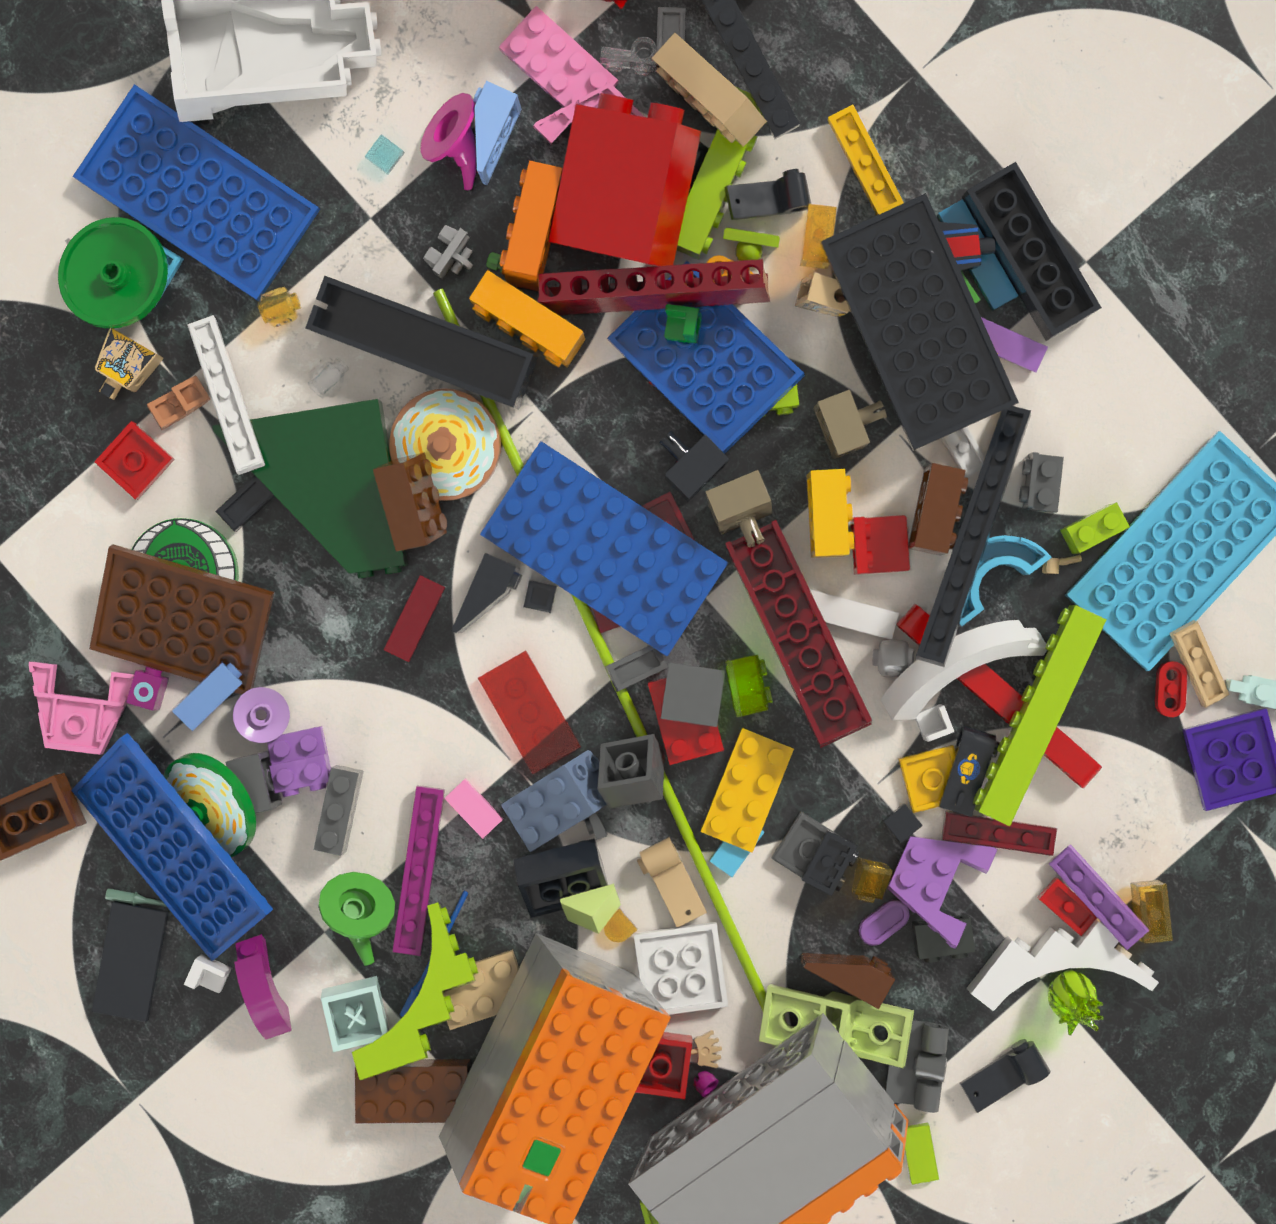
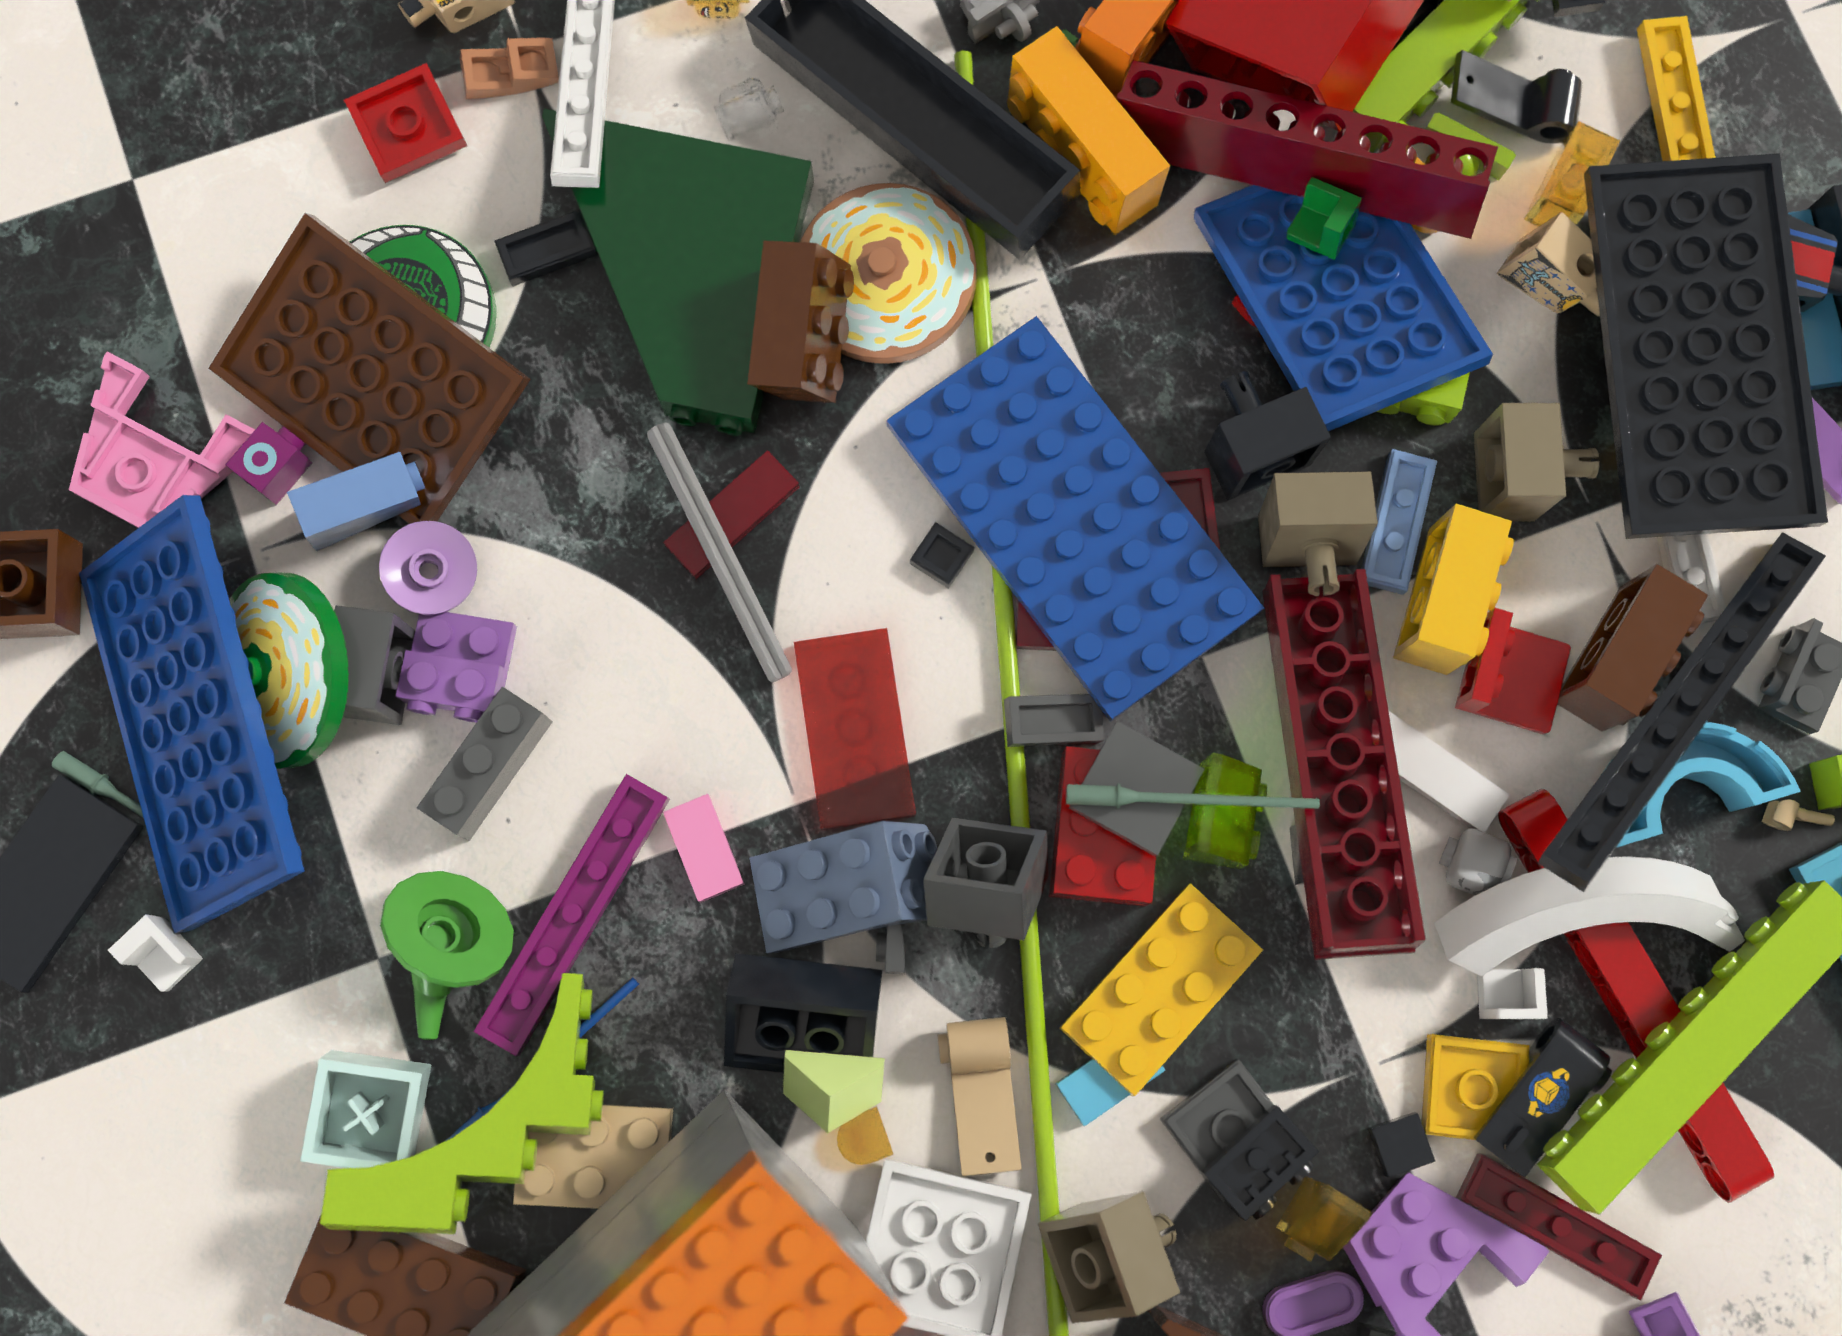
camera: 20 degrees right, 10 degrees down
(258, 989) = (223, 1010): magenta arch -> none
(416, 645) = (719, 552): none -> light grey axle
(490, 585) = (864, 507): black slope -> none
(684, 704) = (1120, 796): none -> sand green piece
(768, 940) = (1110, 1257): none -> dark tan brick
(787, 478) = (1400, 519): none -> light blue tile

